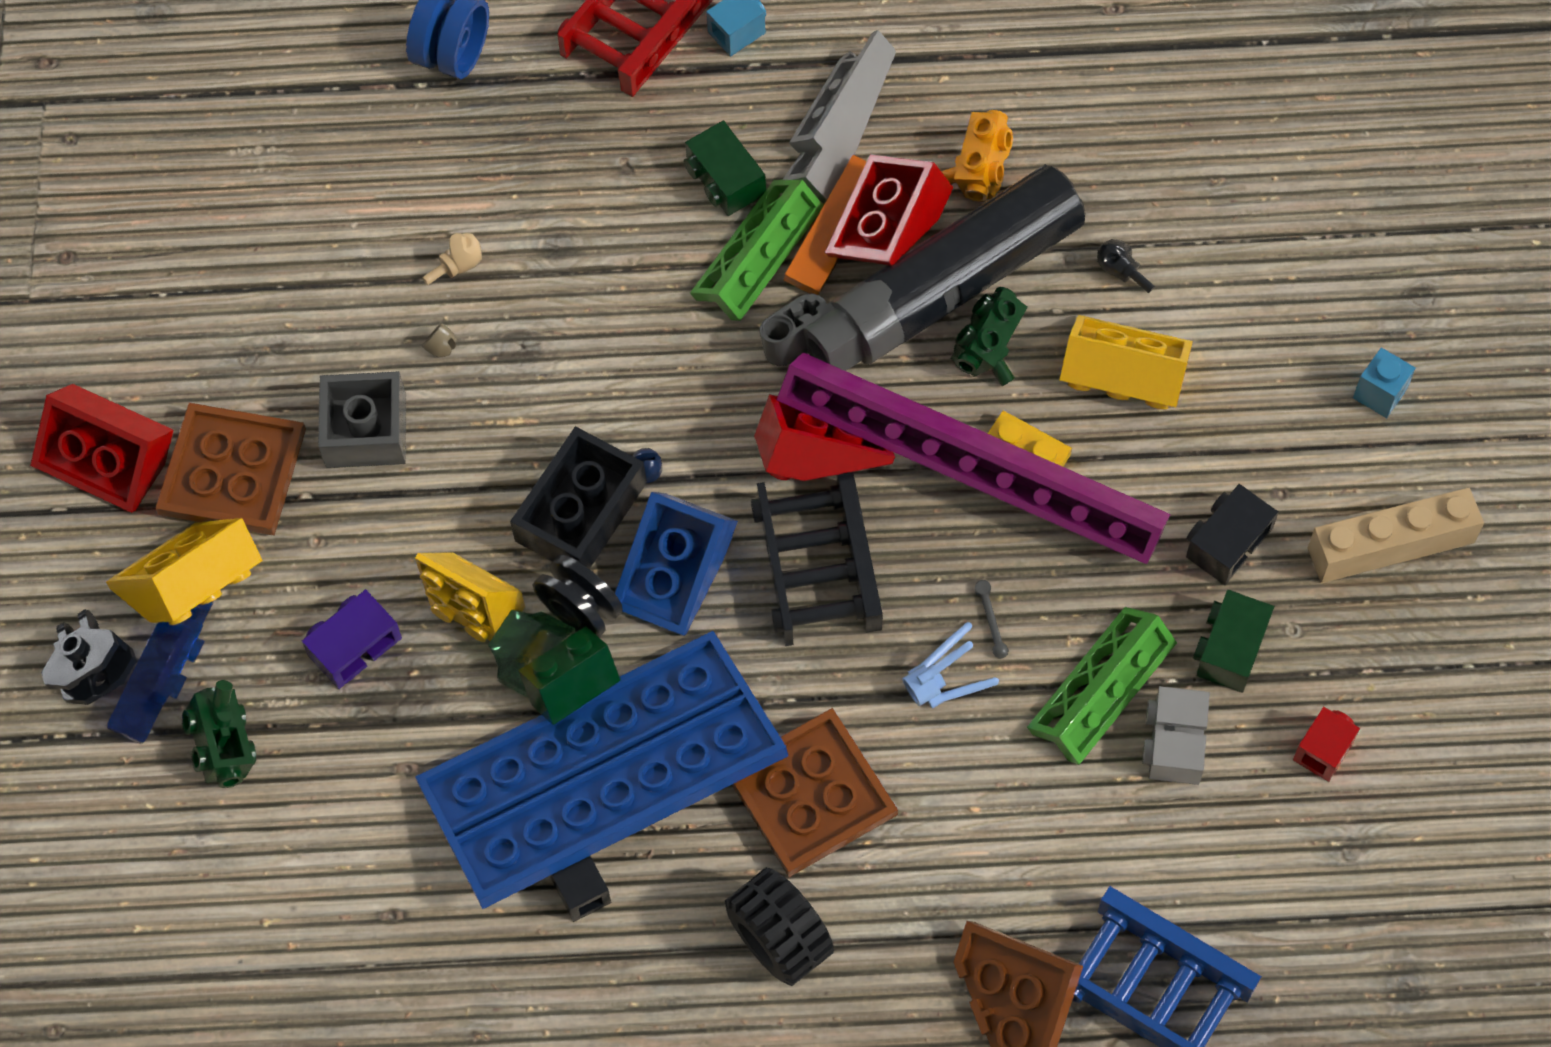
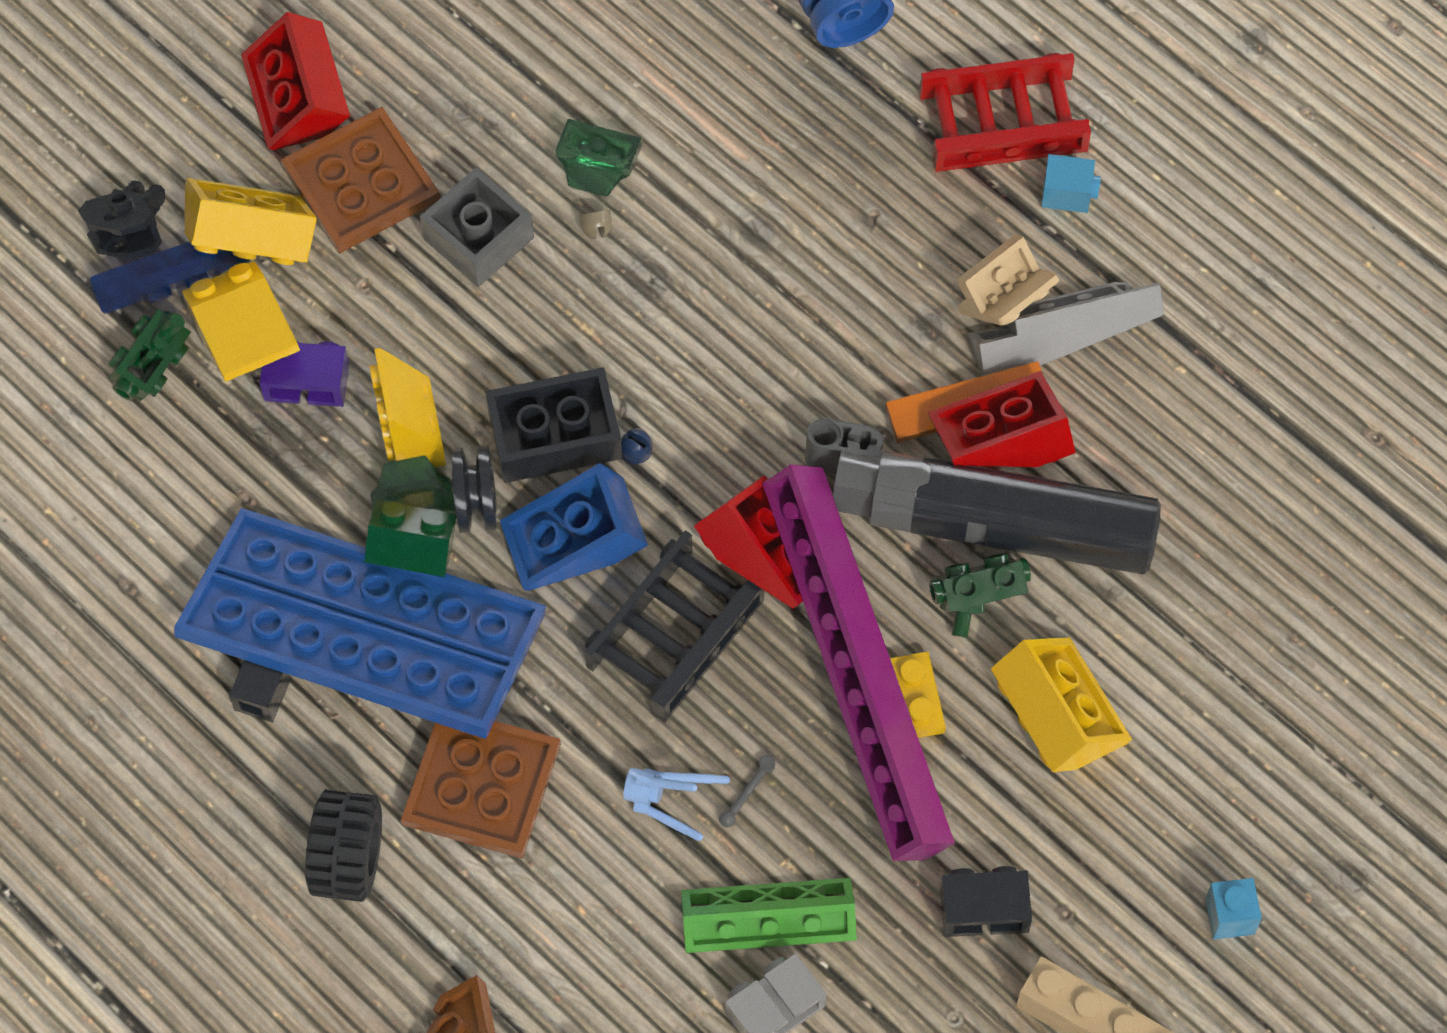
camera: 45 degrees right, 0 degrees up
(267, 644) = (239, 320): none -> yellow slope
(388, 296) = (596, 156): none -> clear green slope
(462, 255) = (678, 174): tan piece -> none
(724, 168) = (933, 284): dark green brick -> none
(759, 248) = (892, 366): bright green fence -> none
(780, 121) = (1004, 283): none -> tan bracket
(982, 156) = (1130, 451): light orange brick -> none
(1117, 259) = (1144, 626): black piece -> none
(1234, 640) = (895, 978): dark green brick -> none

